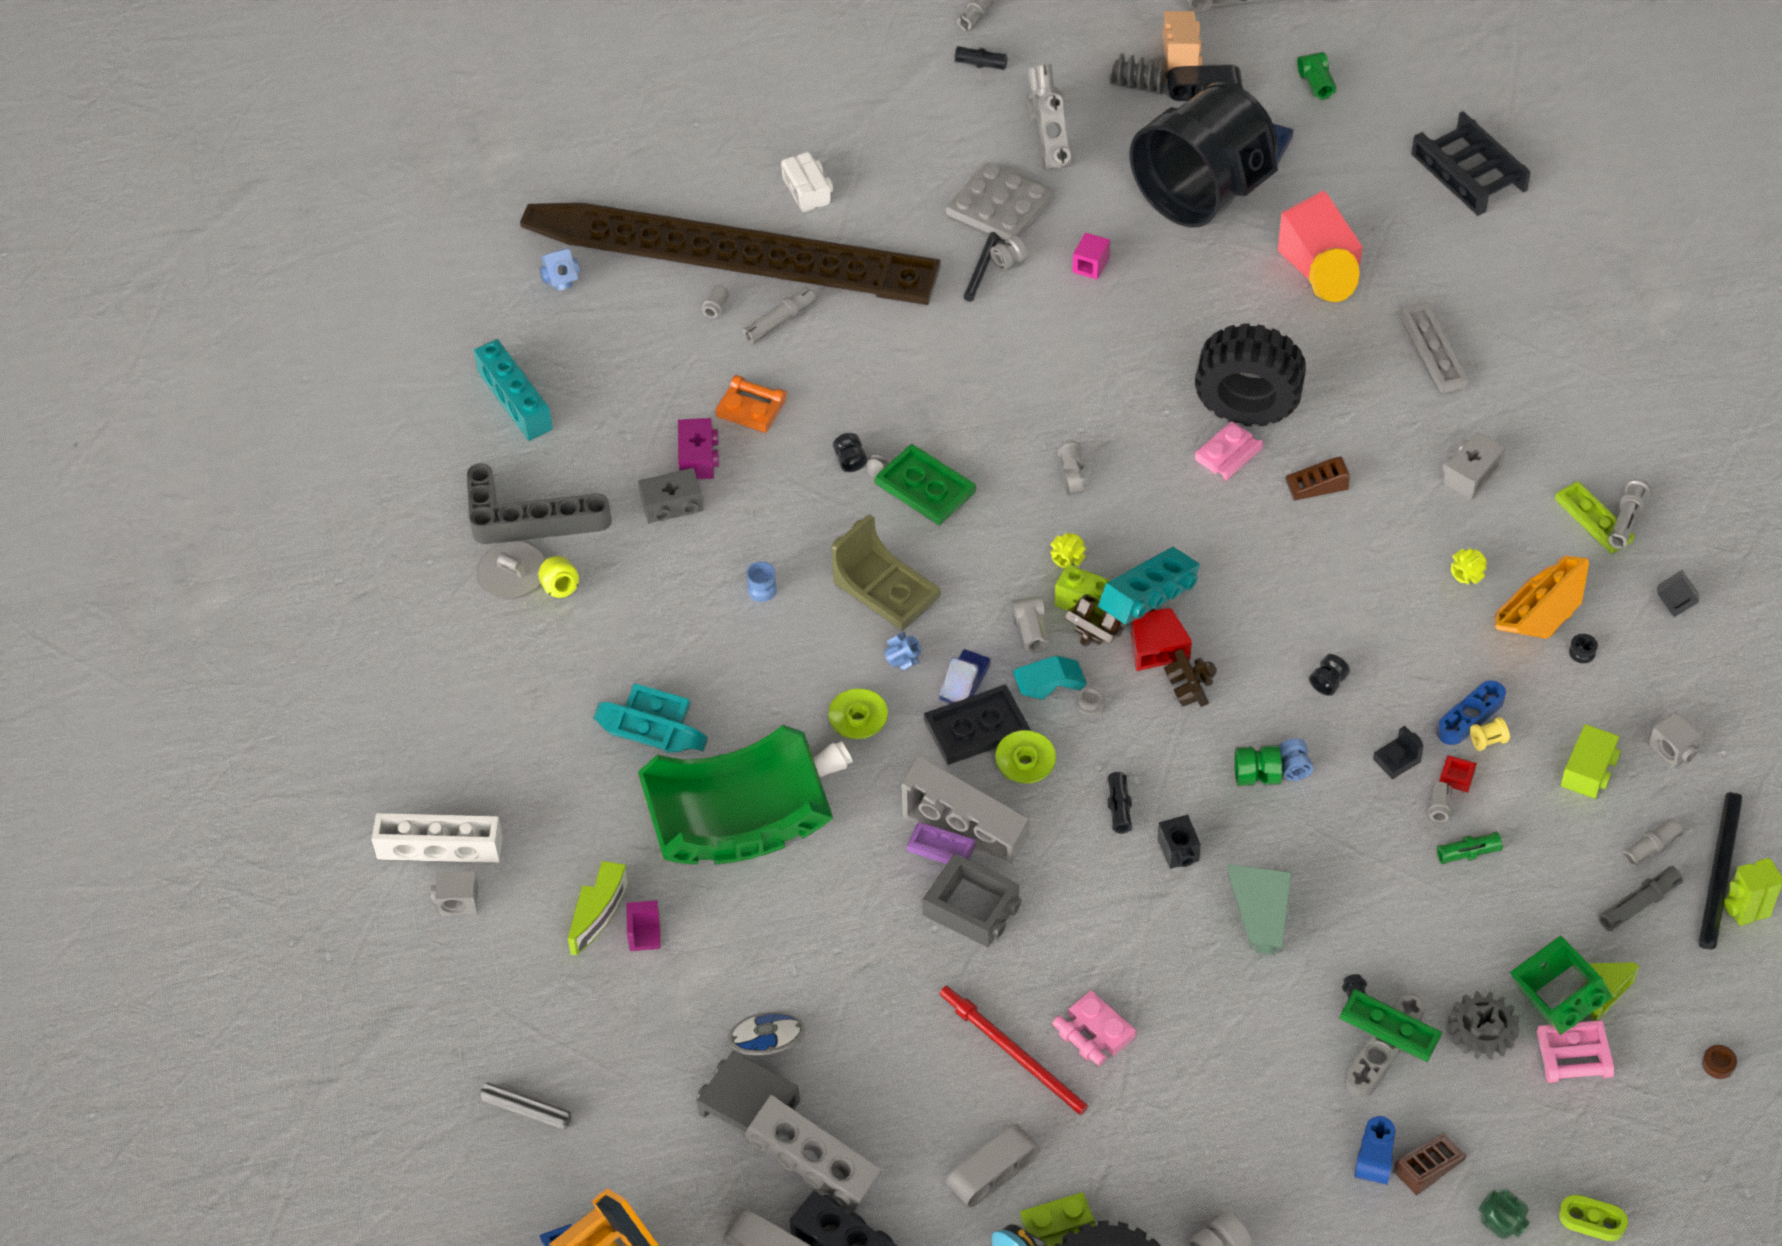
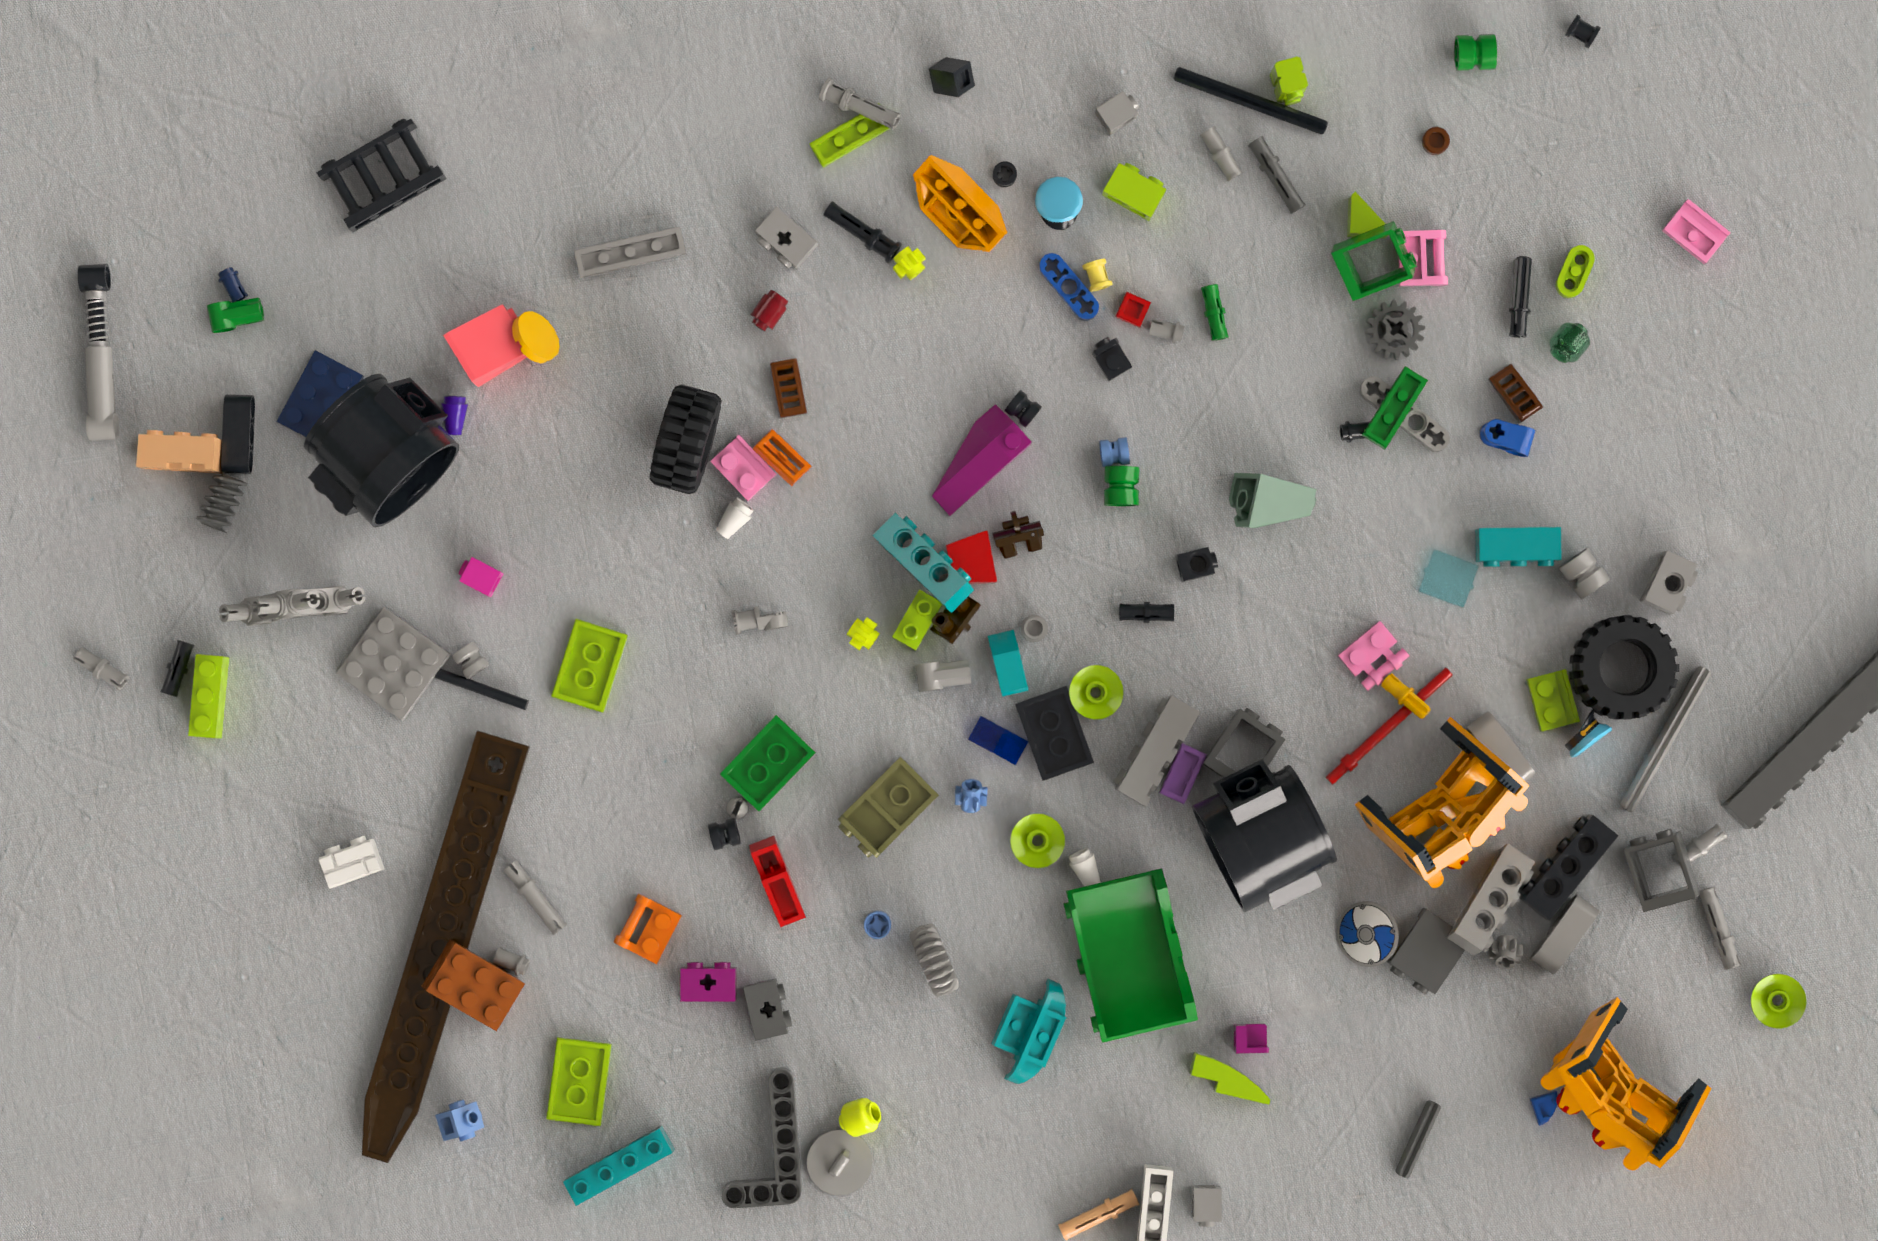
camera: 90 degrees left, 35 degrees up
(434, 772) = (1099, 1214): none -> light nougat pin
(597, 361) = (579, 1081): none -> lime tile
(691, 264) = (473, 985): none -> dark orange brick
(725, 620) = (934, 960): none -> light grey gear
(750, 1181) = (1506, 951): none -> light grey gear
(803, 498) = (777, 881): none -> red slope
(873, 893) = (1265, 835): none -> black cylinder
(891, 1085) = (1476, 814): none -> light orange container
(956, 76) = (208, 696): none -> lime brick
(1012, 345) = (589, 665): none -> lime tile
(1049, 1058) = (1405, 696): none -> yellow axle
(1176, 442) = (734, 517): none -> white cone
(1195, 1105) = (1448, 578): none -> clear light blue piece
(1231, 490) = (773, 456): none -> orange tile
(1244, 1170) = (1518, 546): none -> teal brick
(1248, 228) = (456, 410): none -> dark purple cone
(1276, 652) = (982, 456): none -> magenta wedge
(1349, 70) = (232, 284): none -> dark blue pin
(1395, 456) = (769, 310): none -> dark red brick
(1507, 508) = (873, 239): none -> black pin
(1548, 1159) = (1520, 301): none -> black axle
(1562, 695) = (1059, 202): none -> medium azure piece

